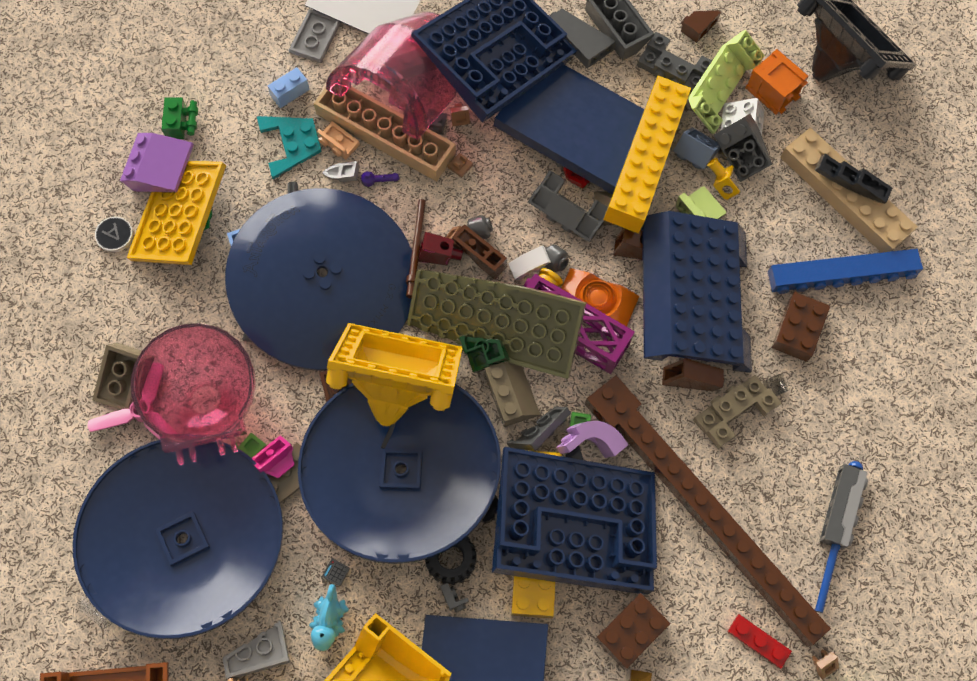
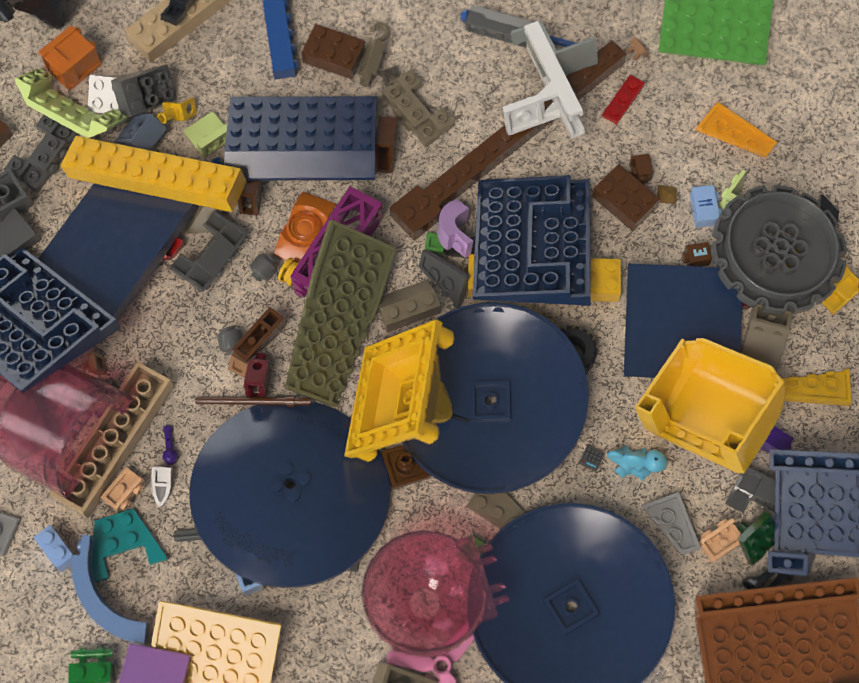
camera: 90 degrees left, 0 degrees up
(235, 118) = (95, 604): none -> medium blue arch
(275, 458) = (485, 521): dark pink slope -> none
(450, 595) = (605, 353): dark grey bracket -> none
(460, 165) = (155, 362): medium nougat tile -> none
(483, 352) = (370, 326): dark green slope -> none
(528, 262) = (270, 289): white slope -> none
(669, 653) = (641, 168): none -> reddish brown brick
(785, 548) = (552, 68): none -> white piece
(800, 367) = (373, 55): none -> dark tan piece

